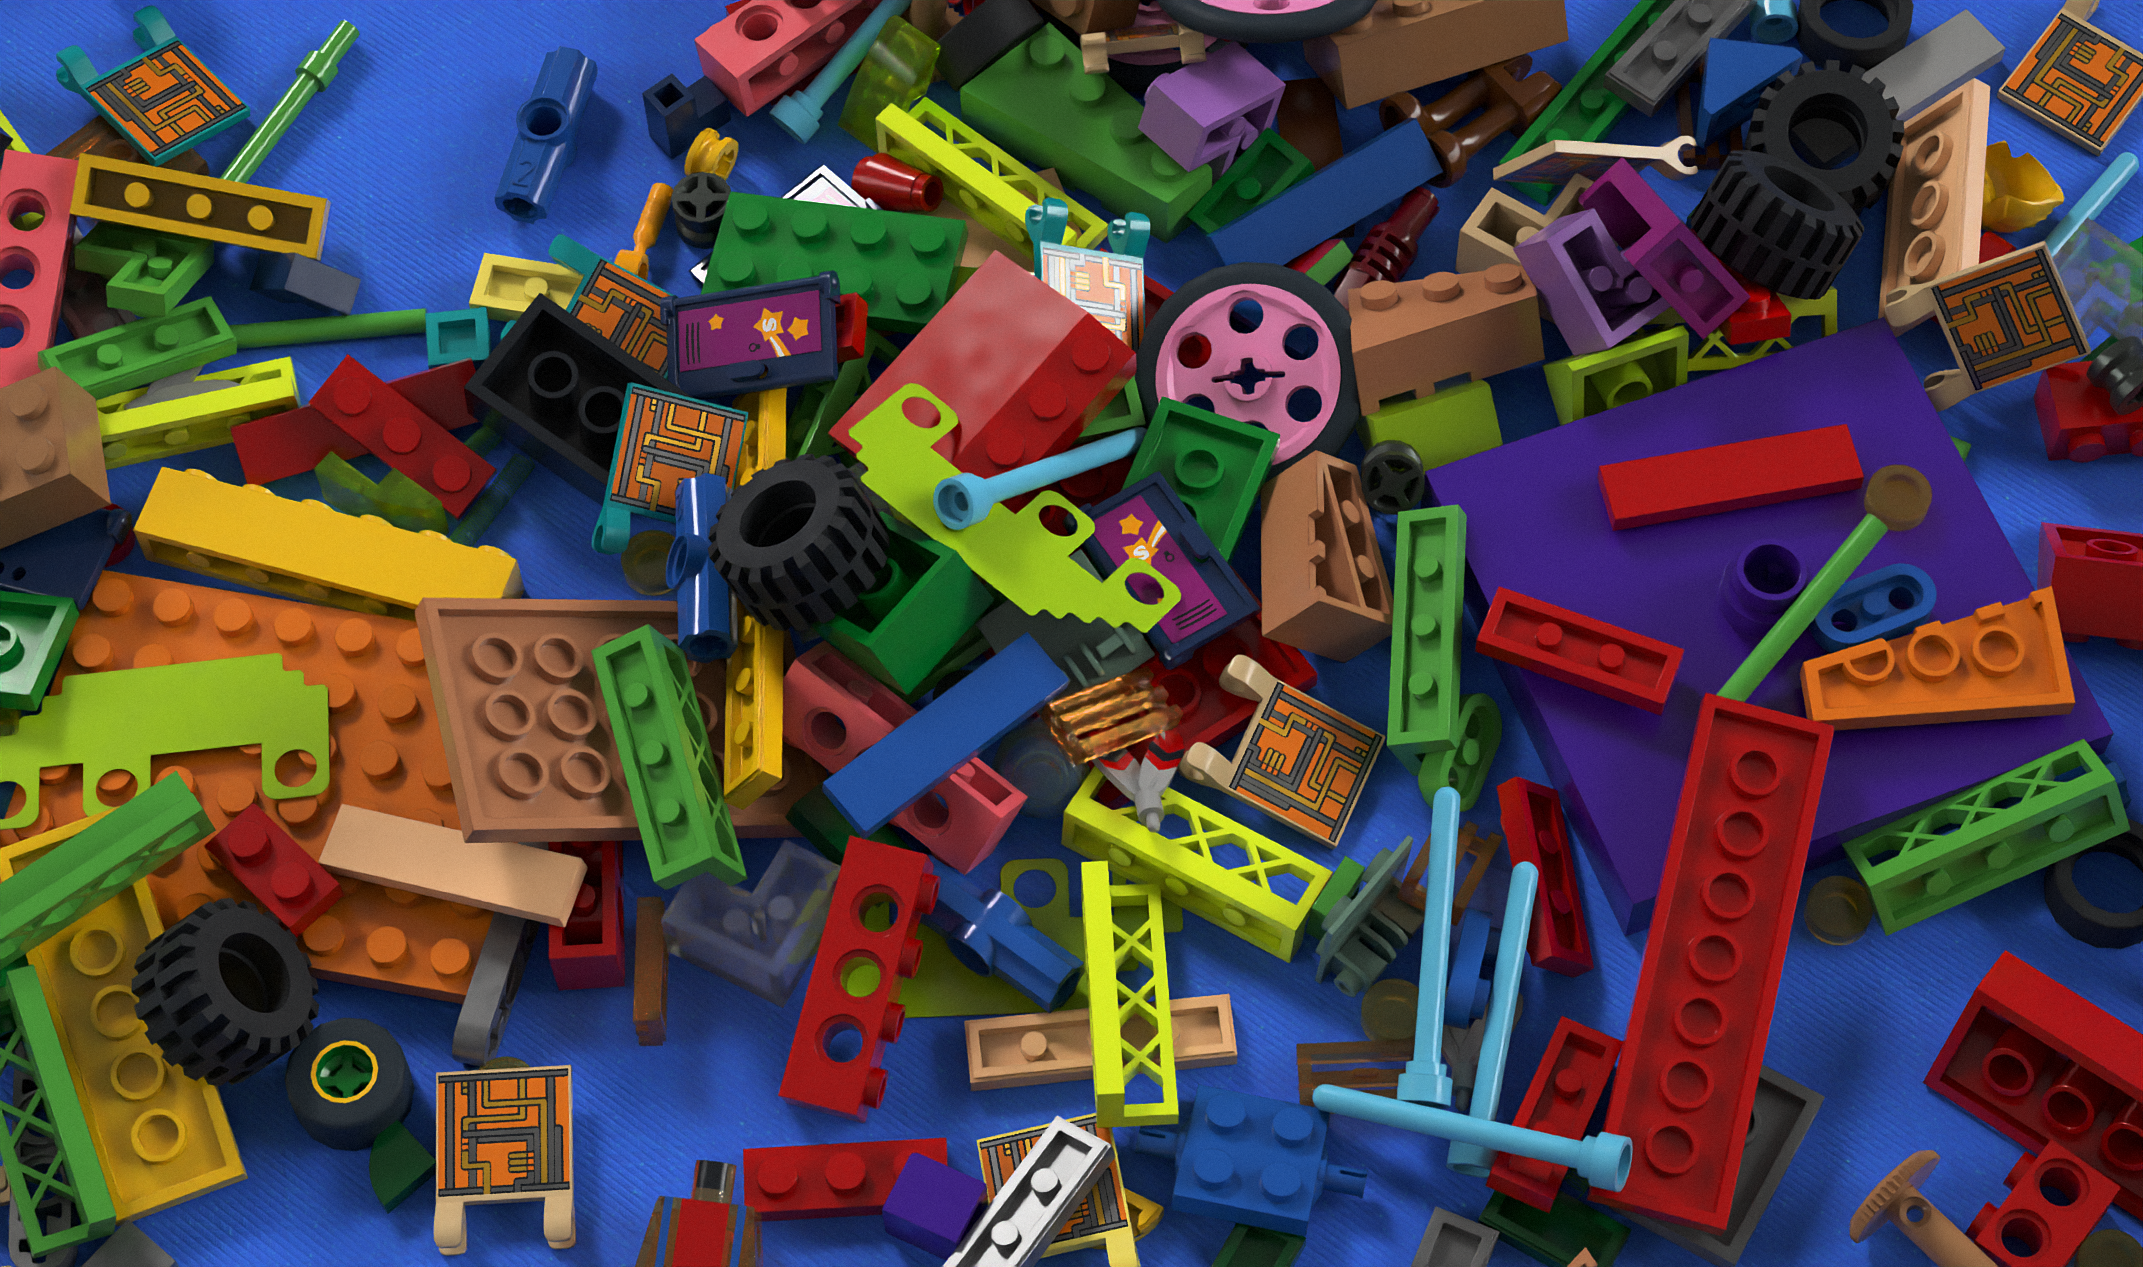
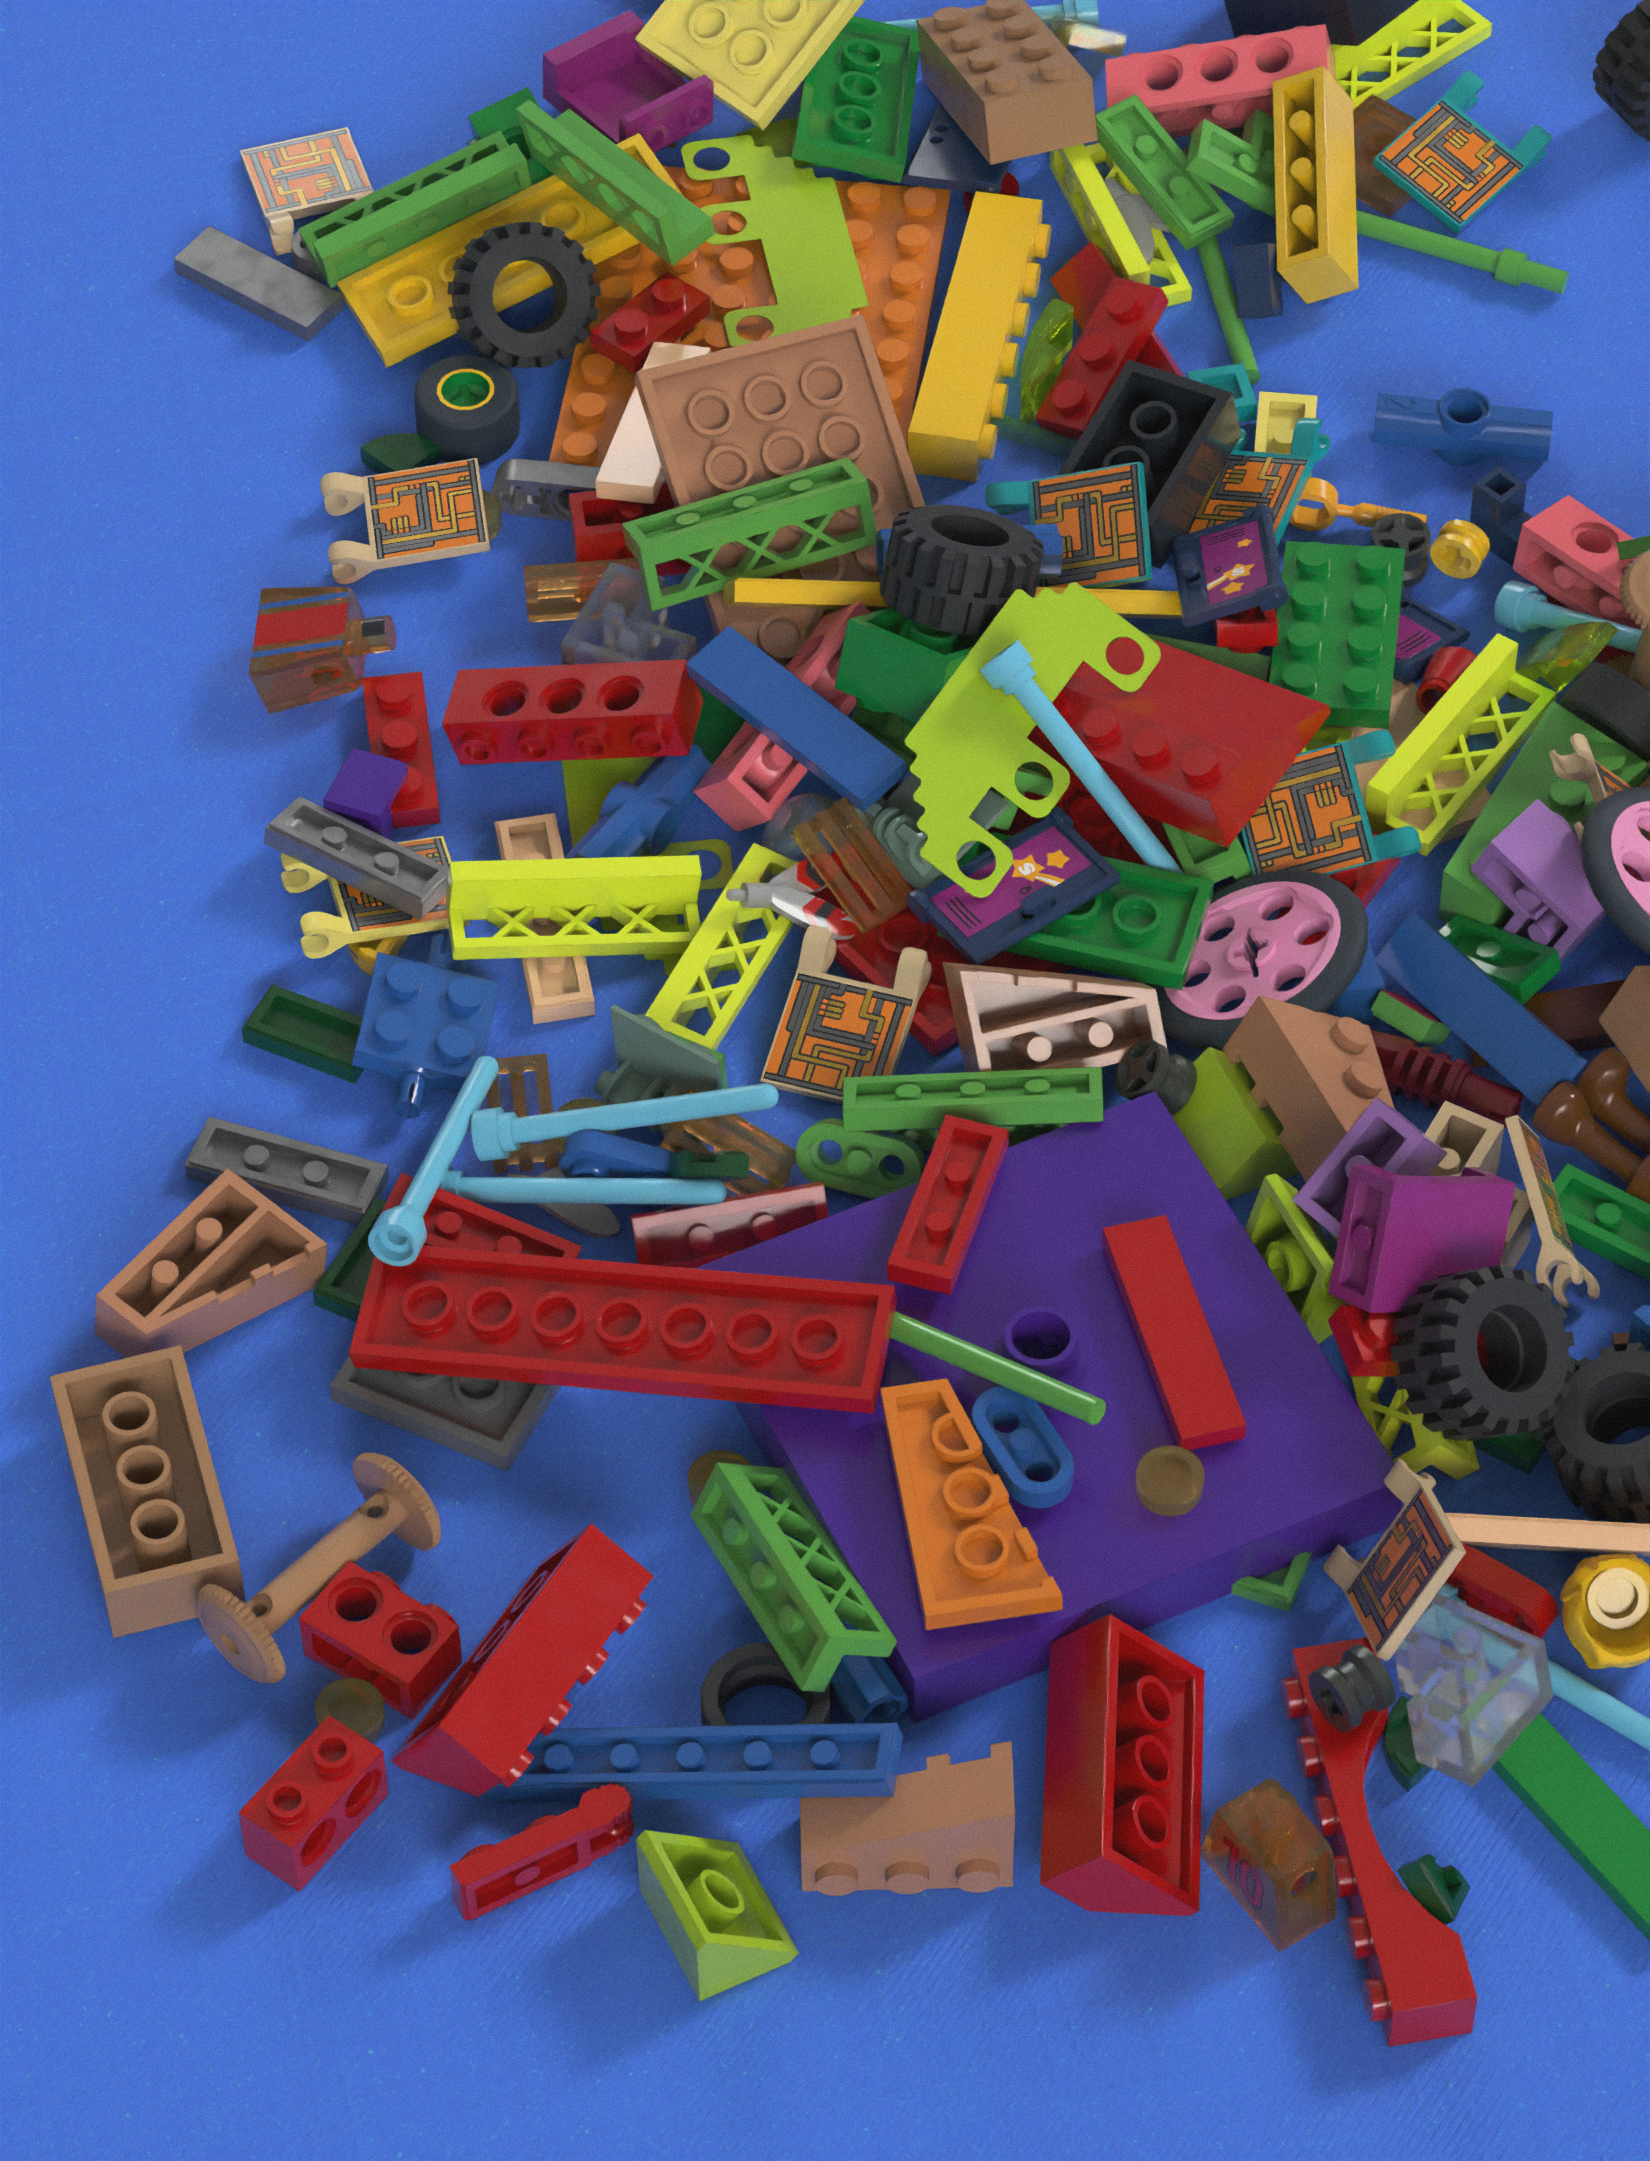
camera: 85 degrees right, 10 degrees down
(1501, 870) = (724, 1165): none -> dark green tile

